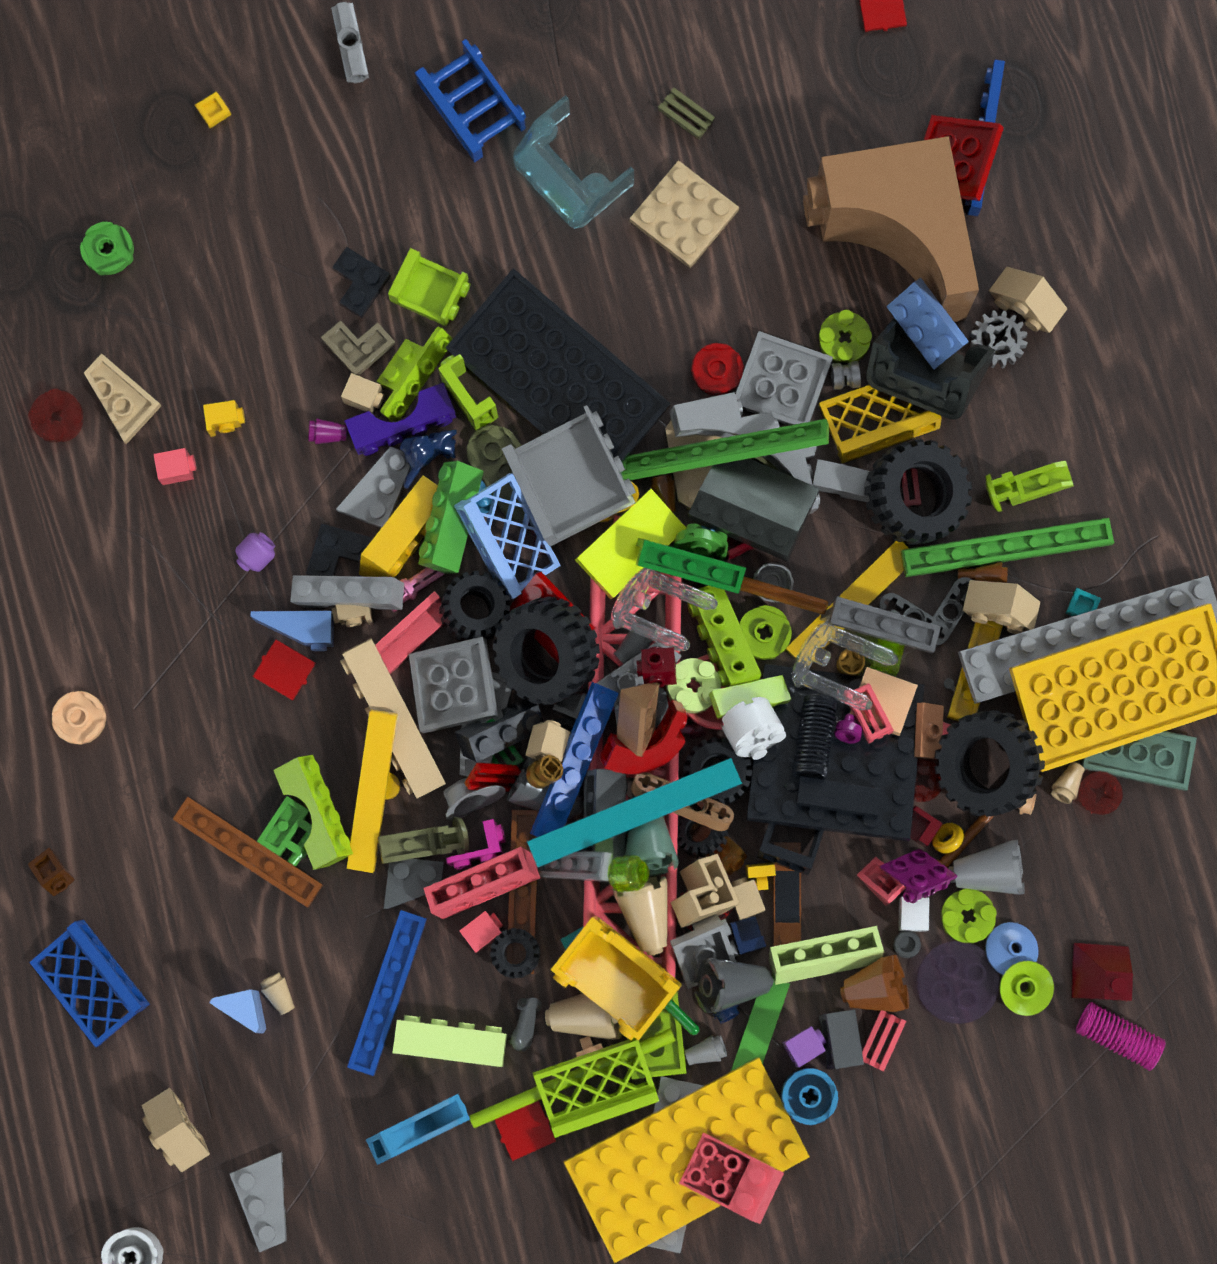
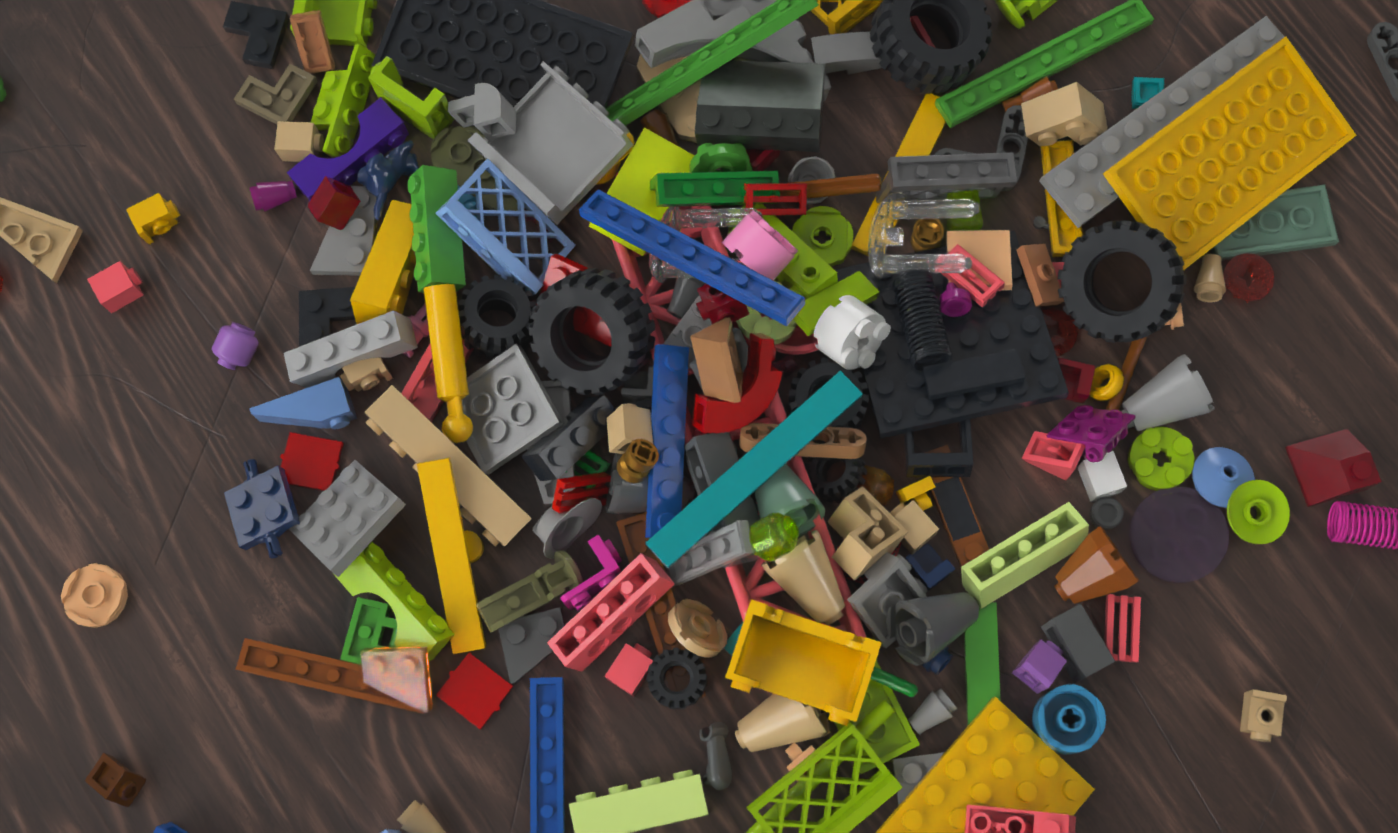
camera: 15 degrees left, 5 degrees down
(234, 695) = (262, 508): none -> dark blue plate
(299, 730) = (347, 517): none -> light grey plate
(299, 870) = (399, 673): none -> clear orange wing
(353, 903) = (474, 691): none -> red piece
(374, 461) = (333, 203): none -> dark red panel
(402, 311) = (312, 42): none -> nougat plate
(423, 630) = (448, 358): none -> yellow piece
(528, 428) = (486, 111): none -> light grey brick
(545, 919) = (697, 629): none -> tan tile
(646, 622) = (693, 257): none -> blue tile
(704, 633) = (760, 246): none -> bright pink brick
(713, 584) = (802, 198): none -> red tile
(963, 1137) = (1251, 721): none -> tan brick

